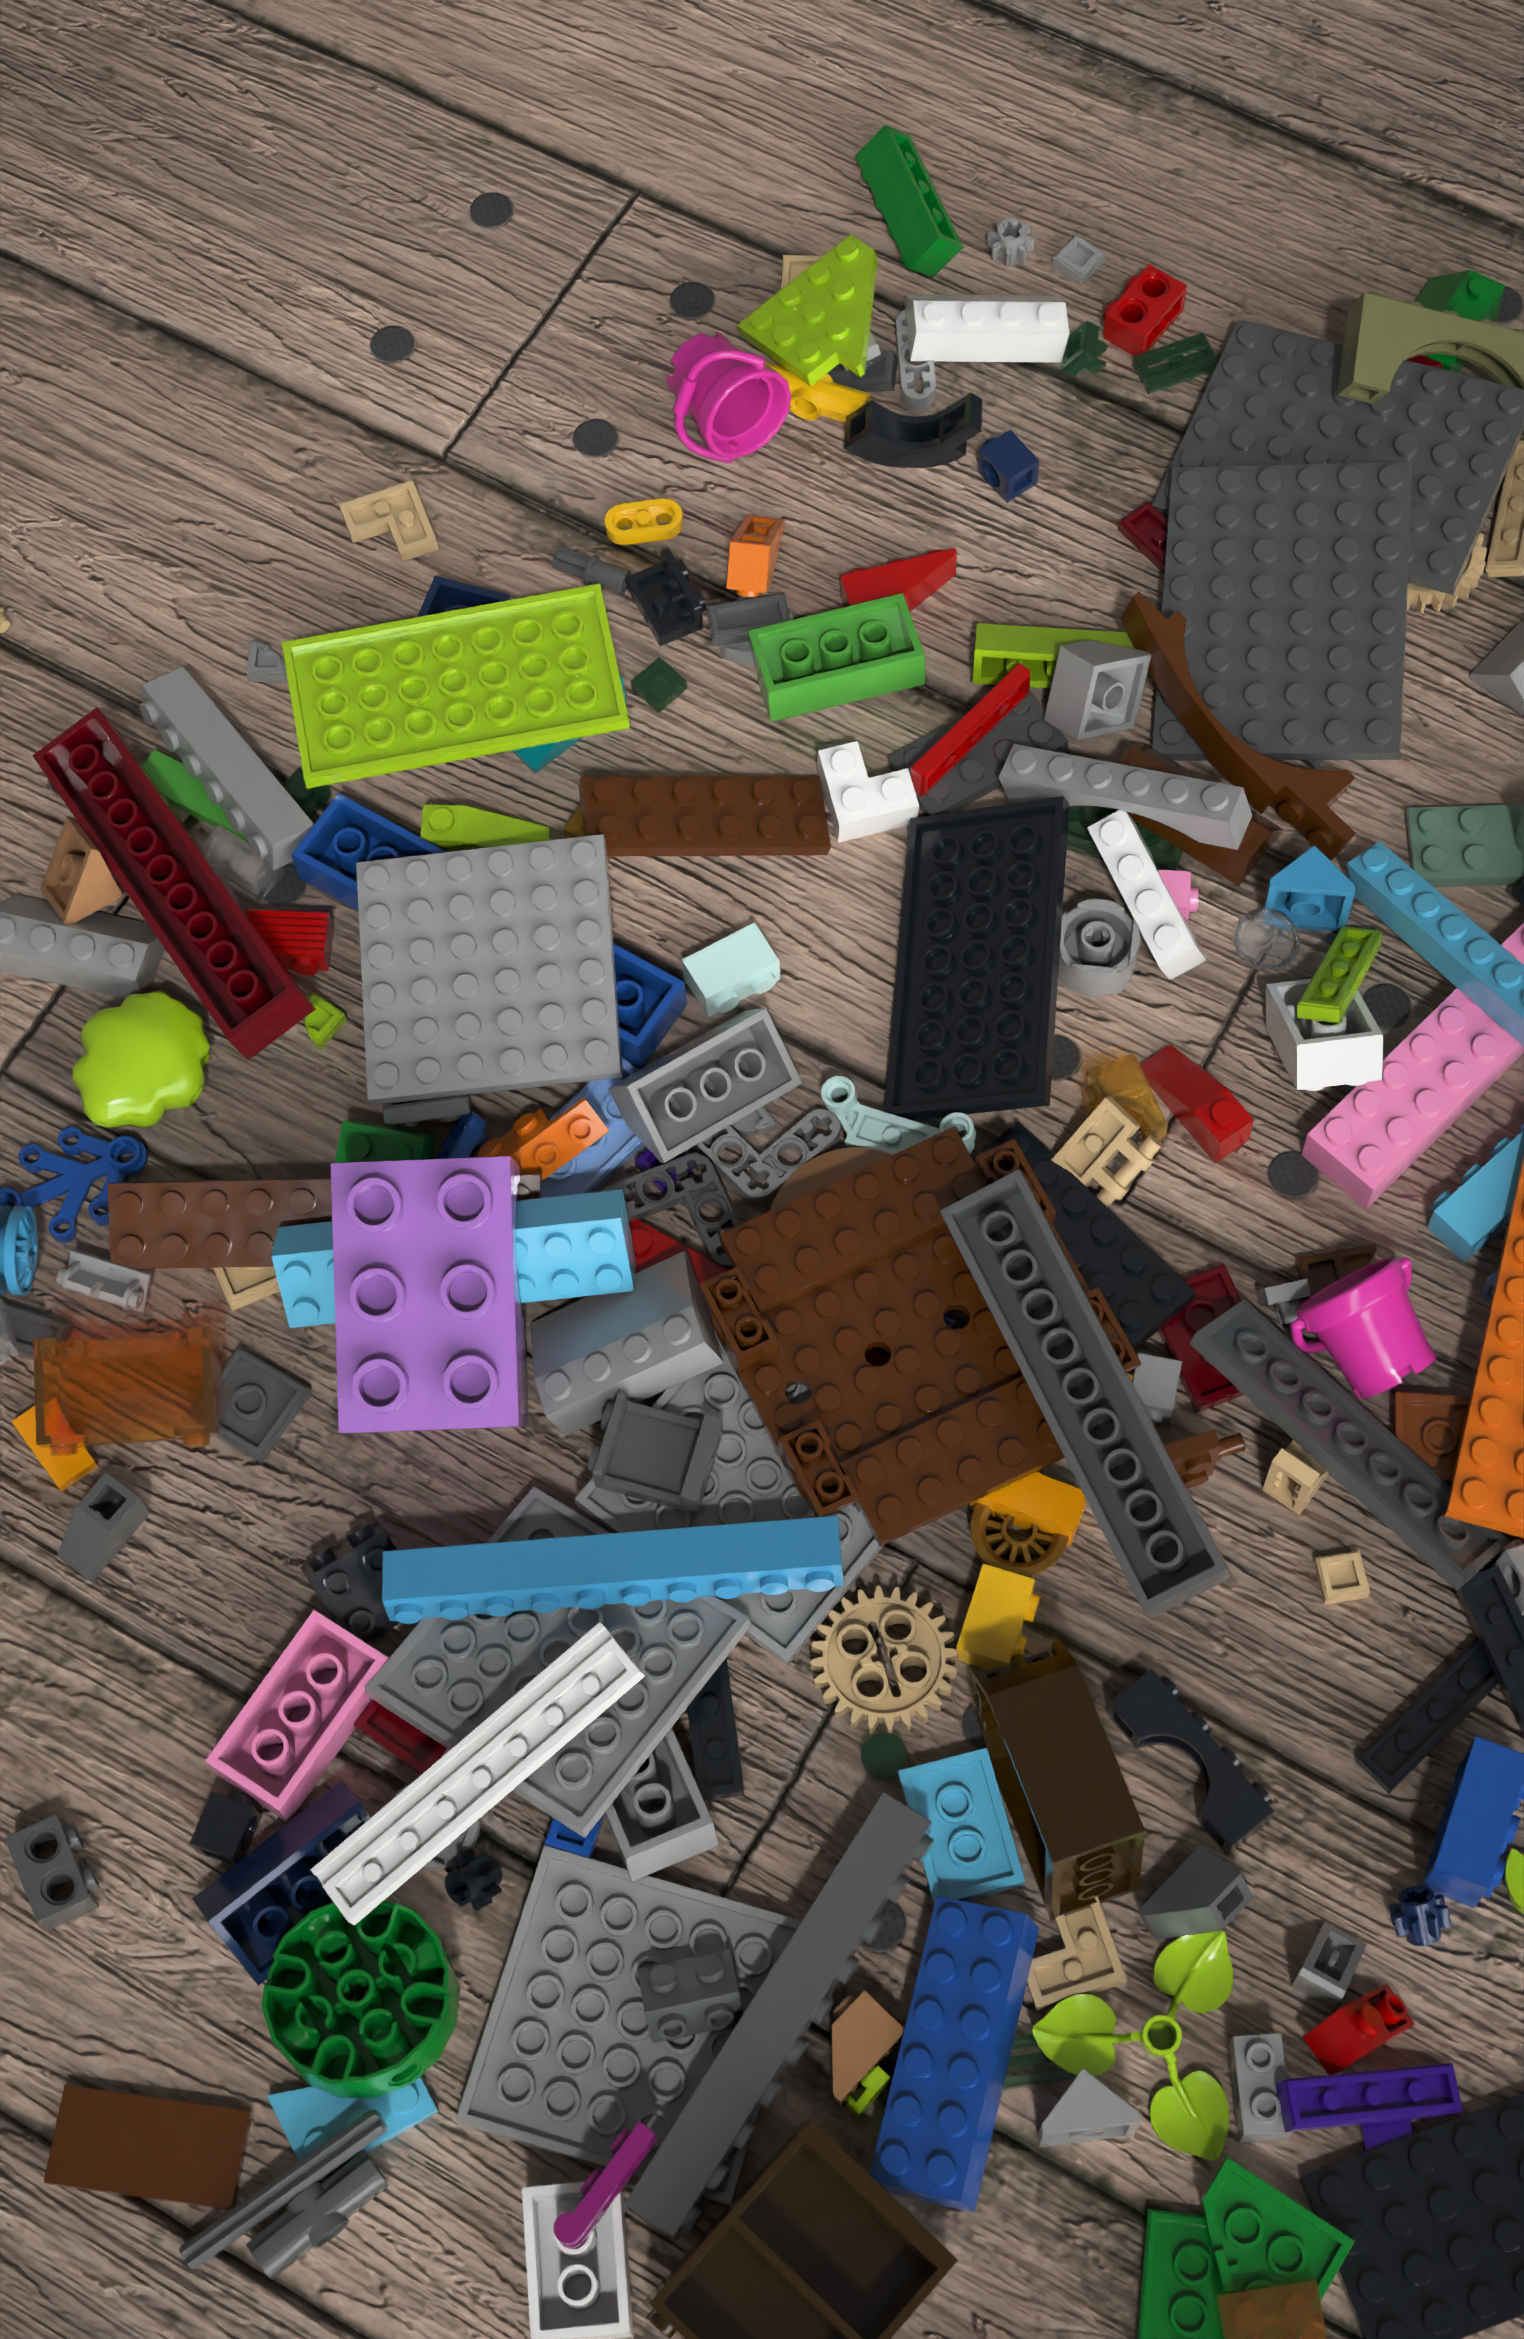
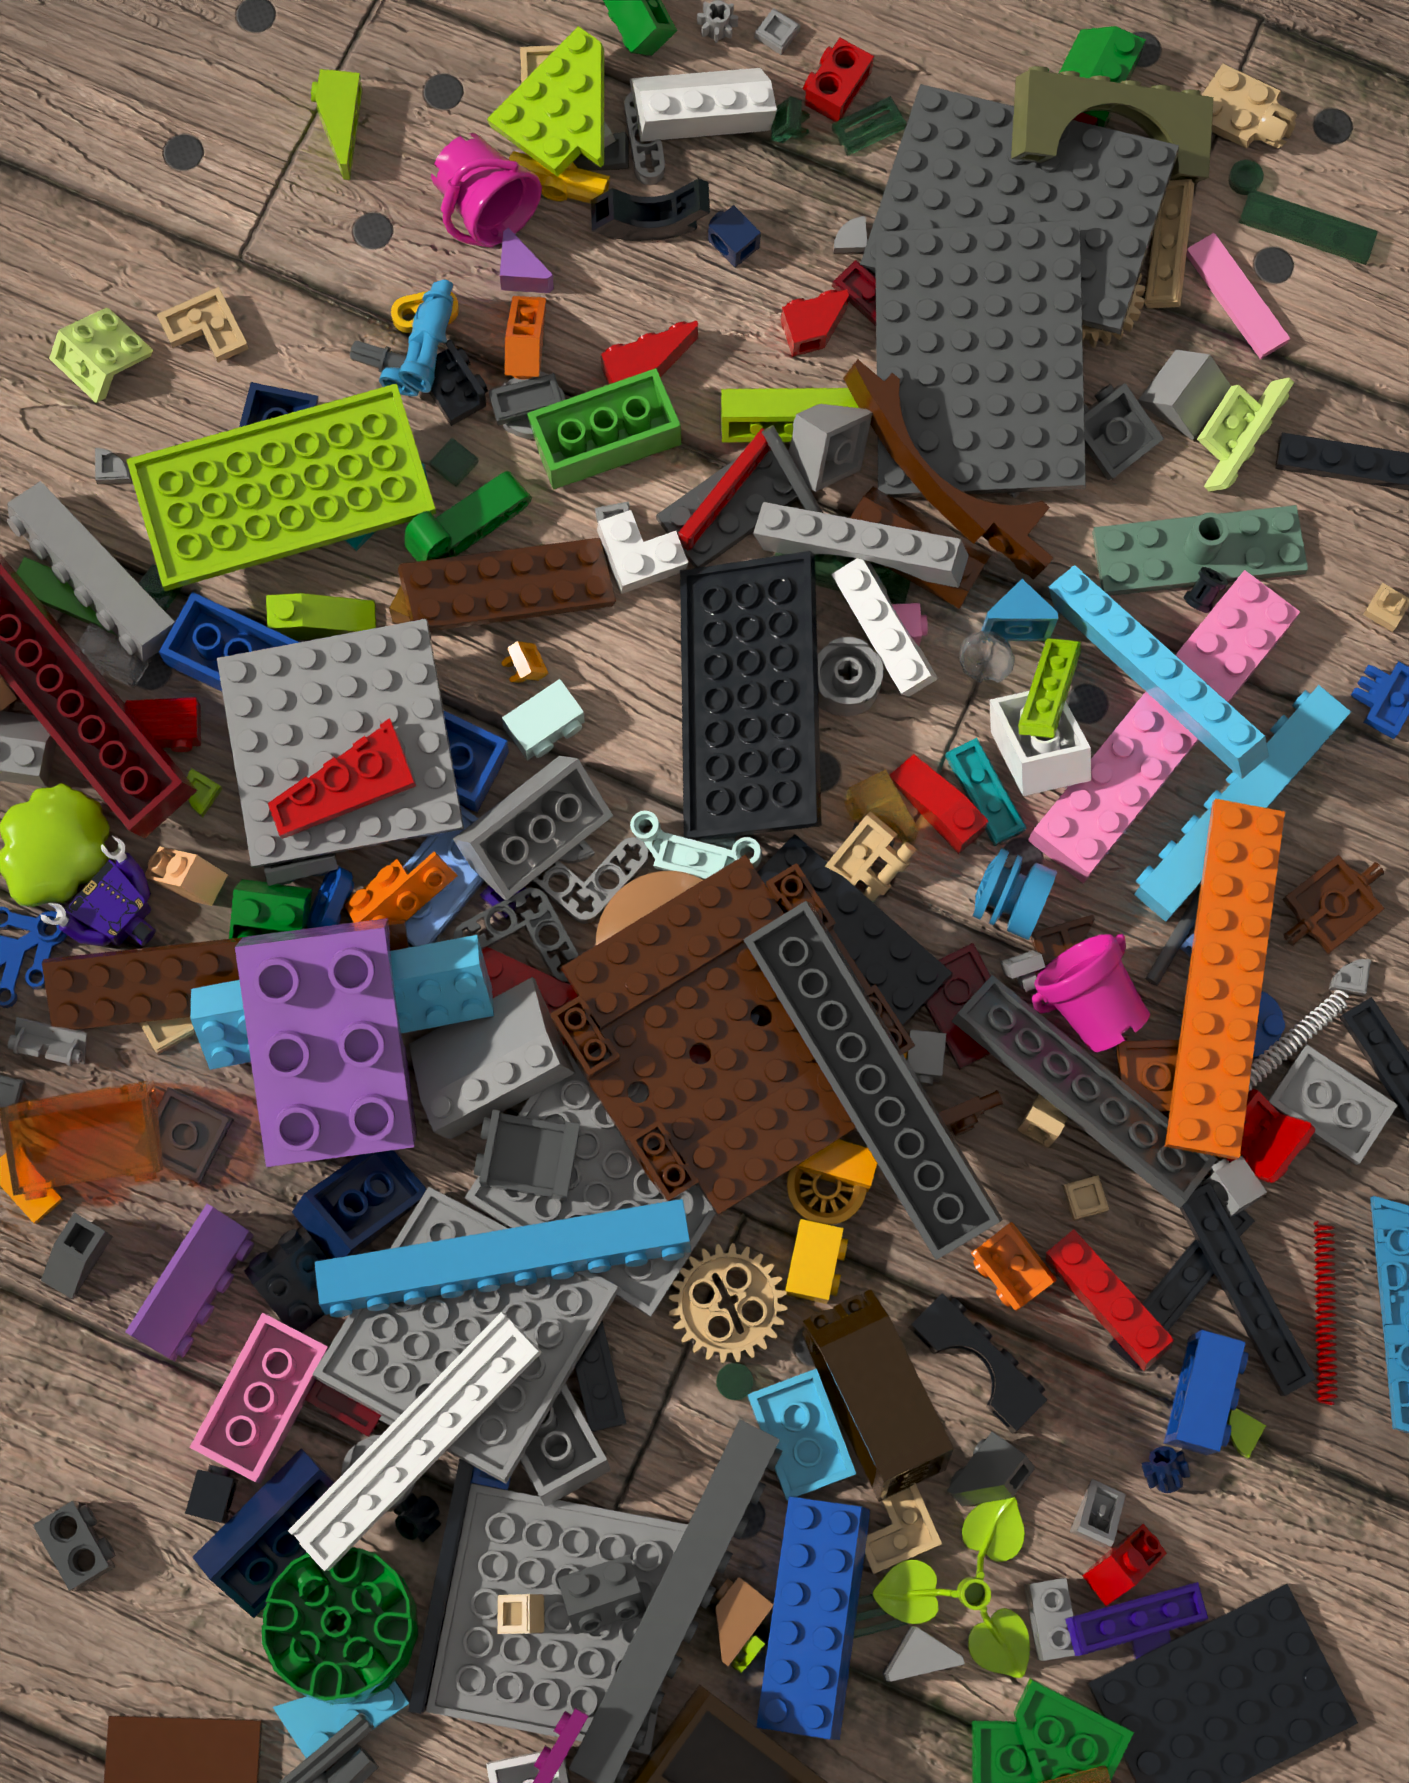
camera: 15 degrees left, 10 degrees up
(197, 1134) = (109, 905): none -> dark purple torso
(233, 1571) = (191, 1283): none -> medium lavender slope
(262, 536) = (96, 351): none -> yellowish green bracket
(291, 1108) = (185, 875): none -> light nougat slope
(447, 1494) = (358, 1202): none -> dark blue slope
(492, 1968) = (441, 1589): none -> black tile
(504, 1004) = (355, 779): none -> red wing
(572, 304) = (338, 106): none -> lime slope
(587, 2009) = (520, 1613): none -> tan slope
(626, 578) = (428, 331): none -> dark azure piece
(667, 744) = (467, 520): none -> green beam
(719, 905) = (527, 662): none -> light orange tile
(759, 484) = (521, 268): none -> medium lavender slope
(1047, 708) = (790, 469): none -> dark grey bar
(1092, 561) = (813, 321): none -> red slope
(1145, 477) = (851, 237): none -> light grey tile
(1243, 1649) = (1012, 1267): none -> orange bracket
(1252, 1086) = (985, 791): none -> teal tile
(1278, 1206) = (1014, 893): none -> dark azure wheel
(1362, 1698) = (1109, 1300): none -> red brick
(1443, 702) = (1118, 430): none -> dark grey plate
(1471, 1288) = (1174, 942): none -> dark grey bar

